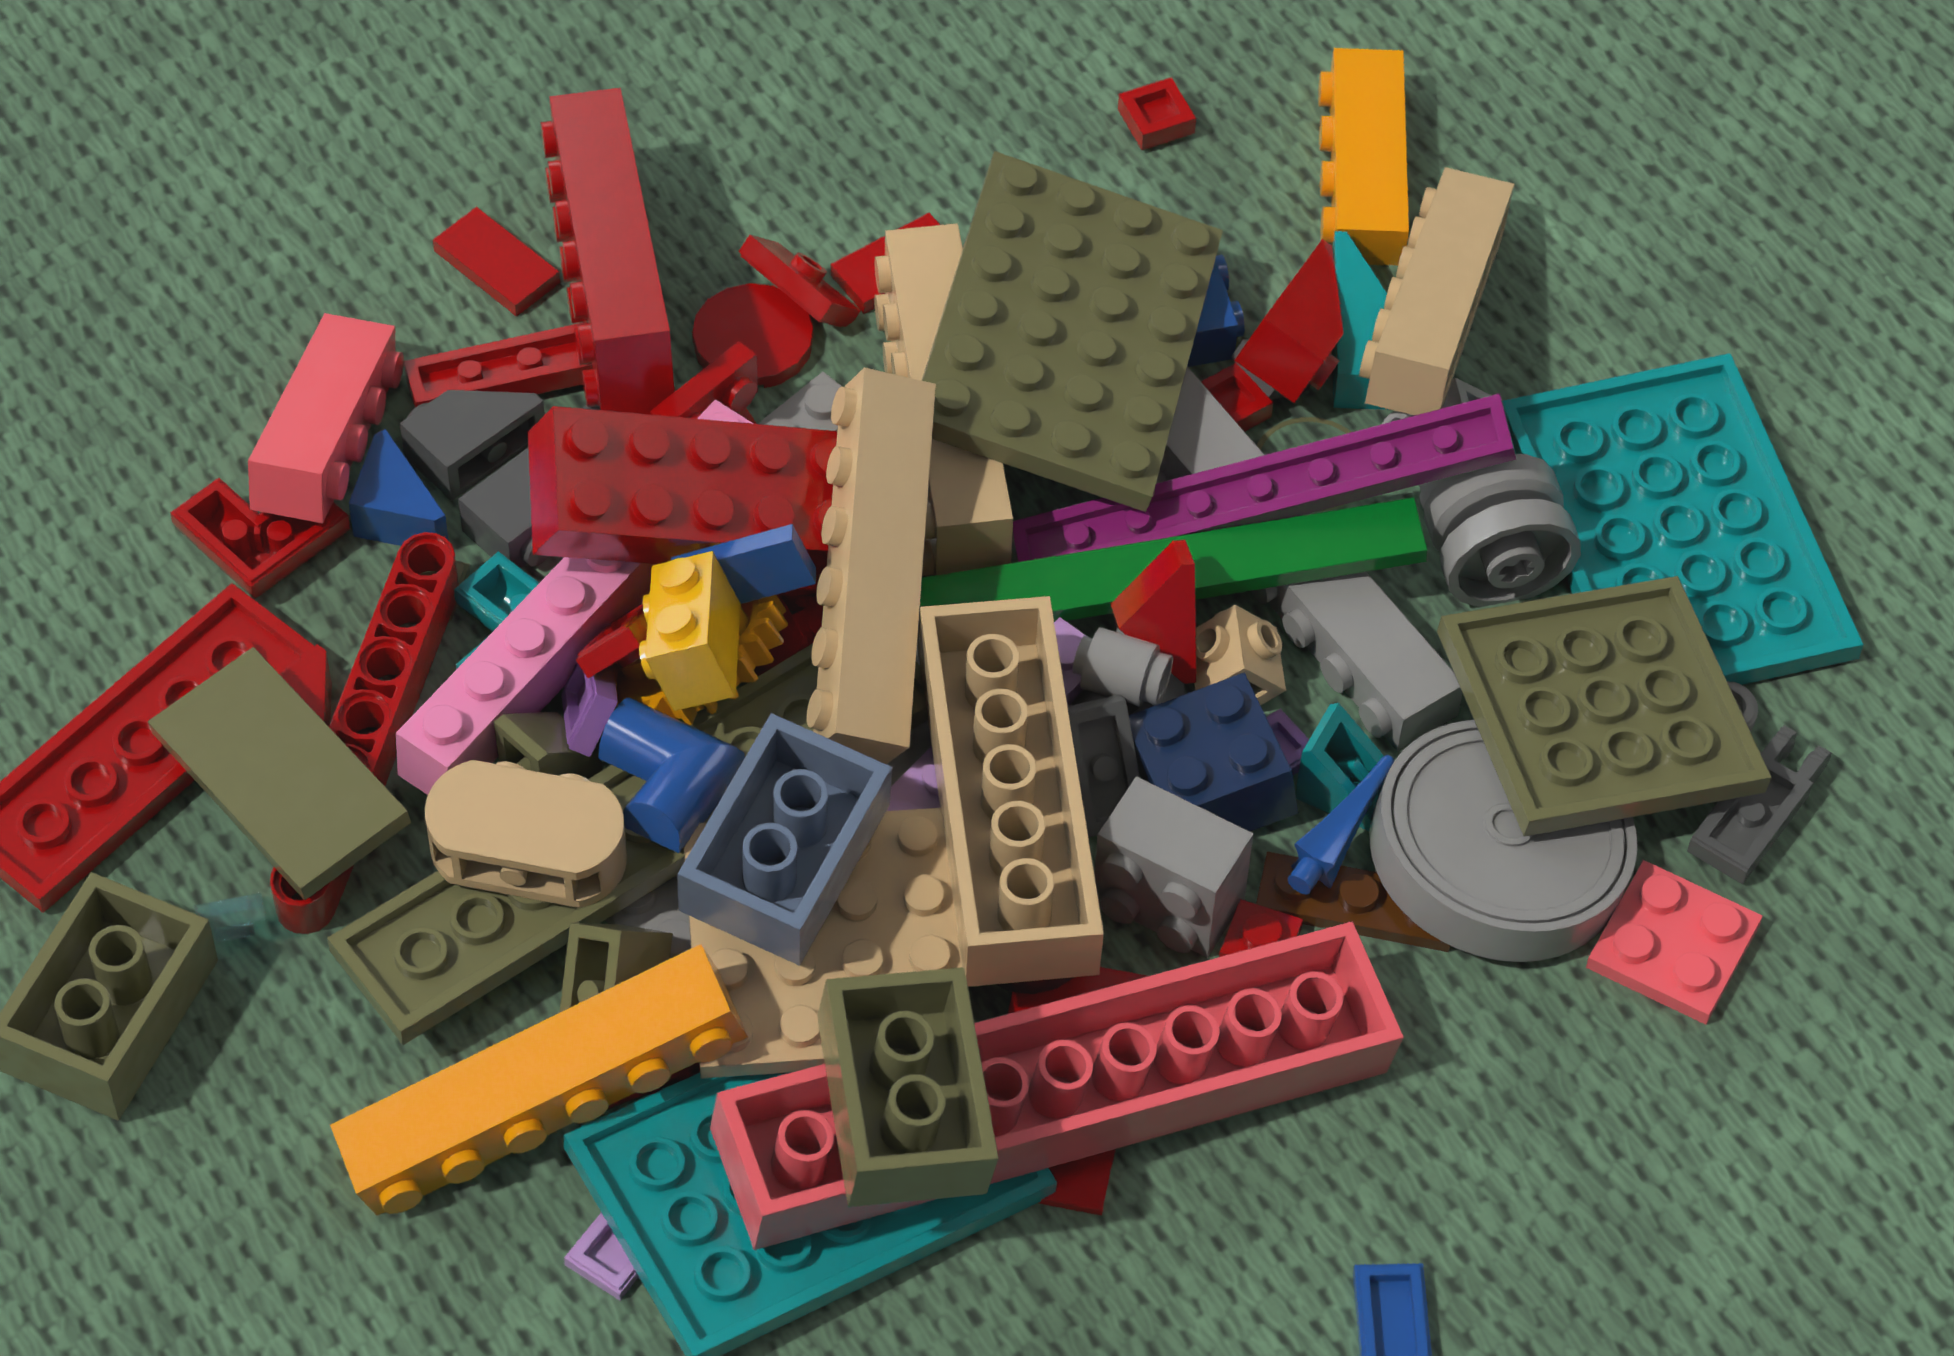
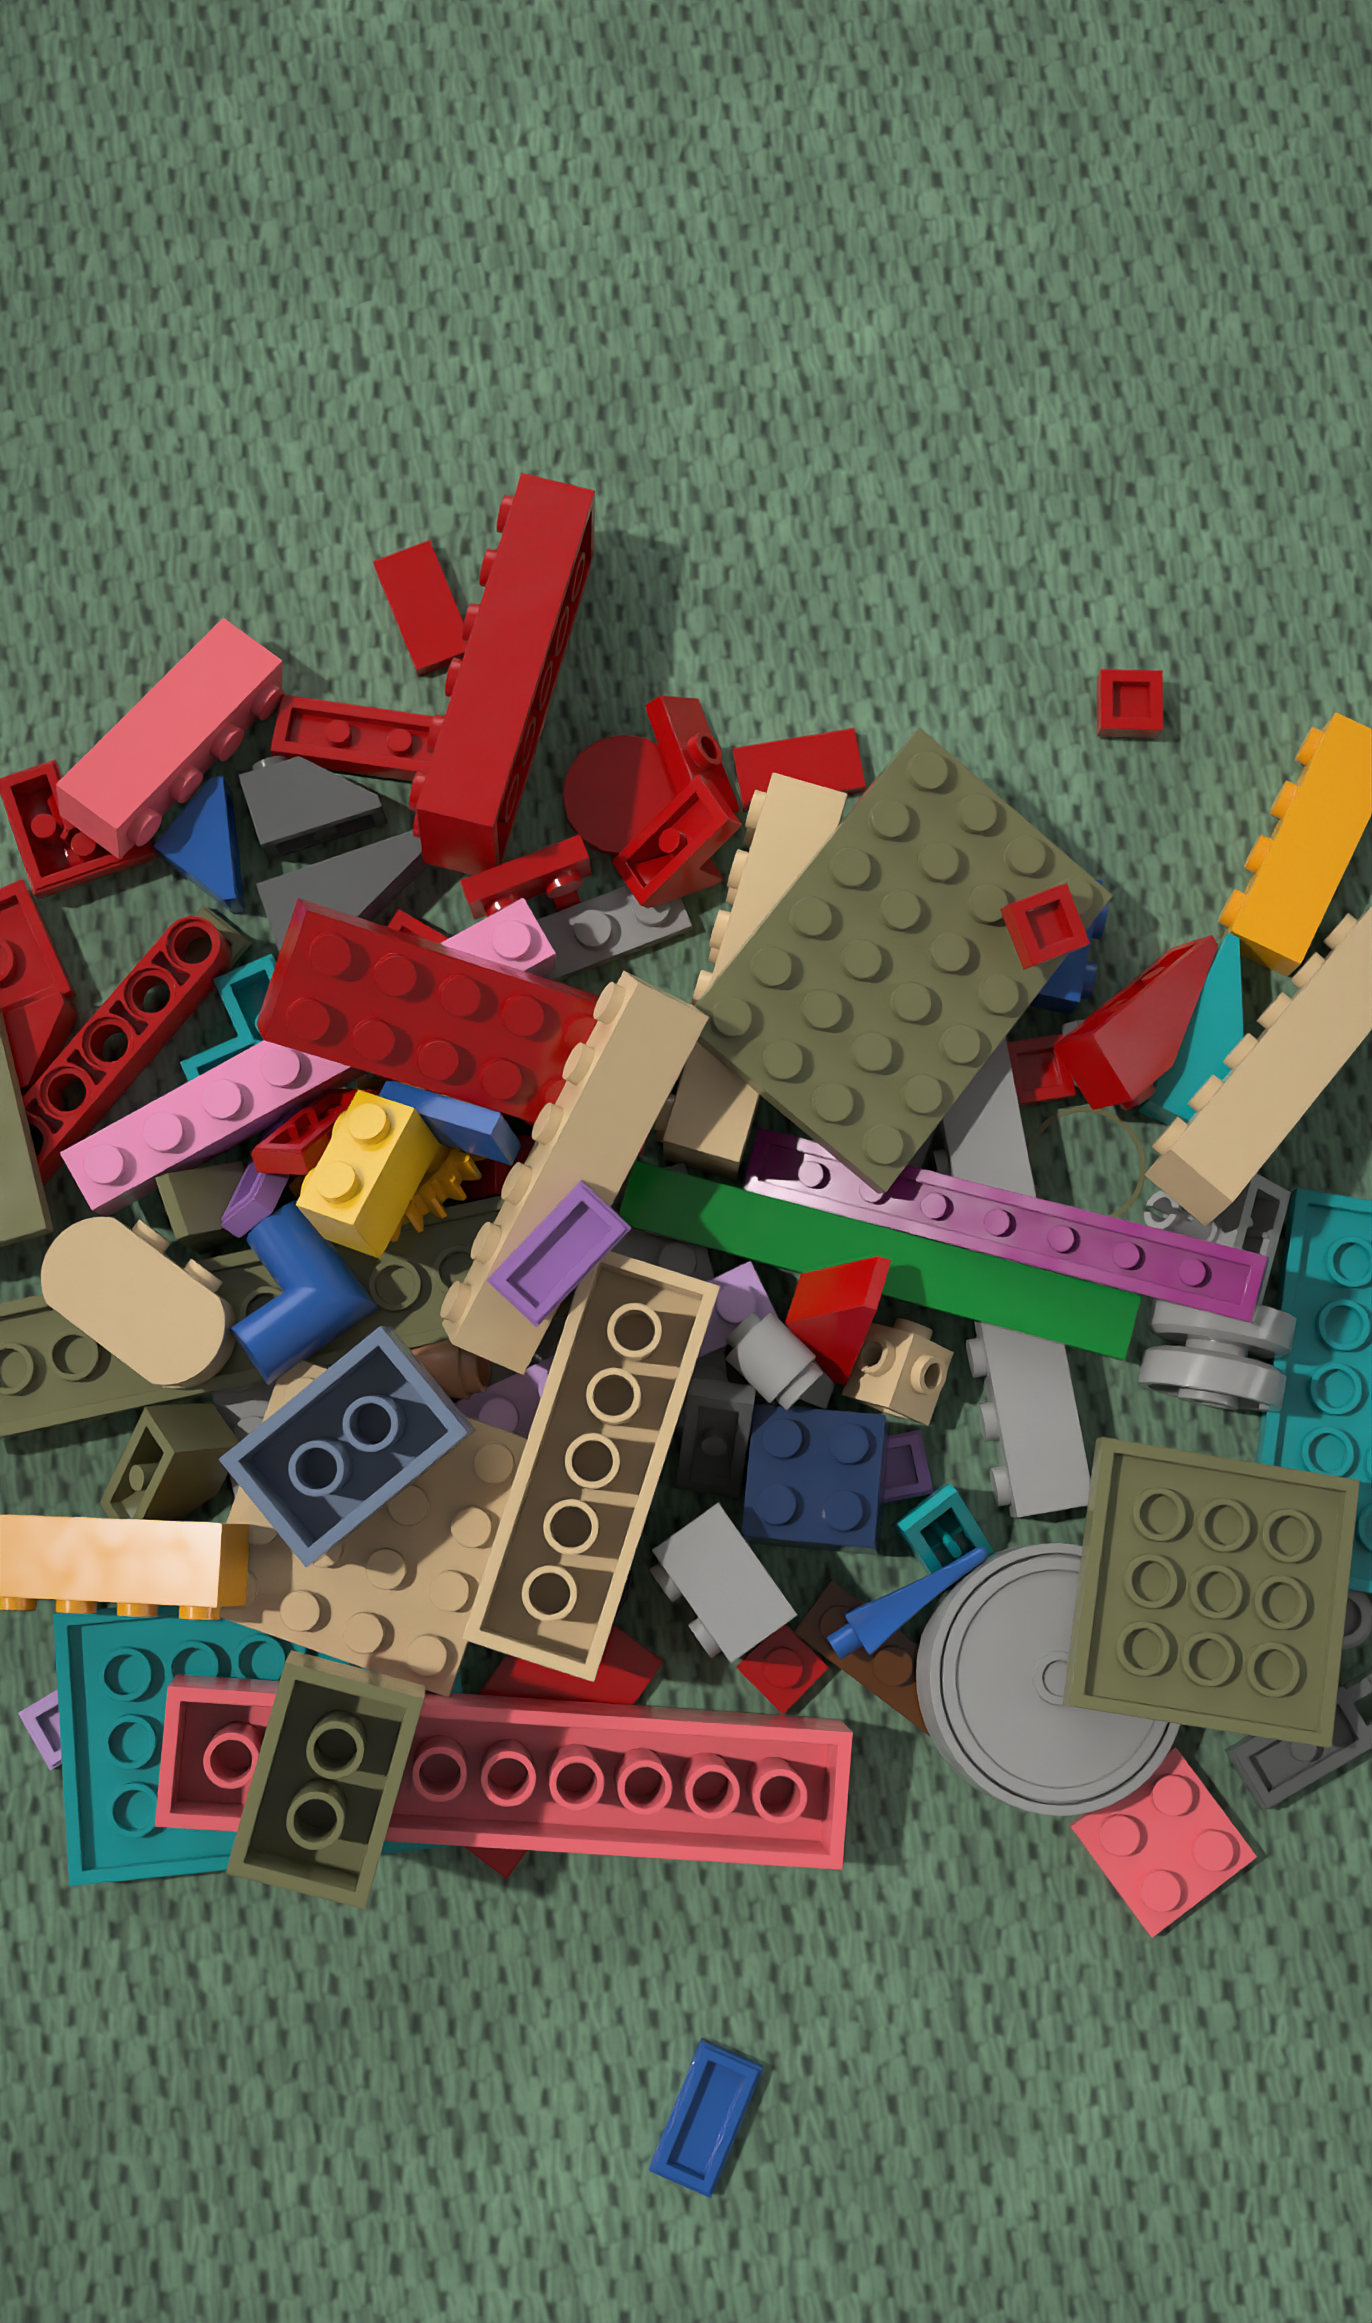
camera: 25 degrees right, 25 degrees up
(821, 340) = (675, 848): none -> red slope
(897, 615) = (559, 1253): none -> medium lavender tile
(1179, 251) = (1044, 926): none -> red plate

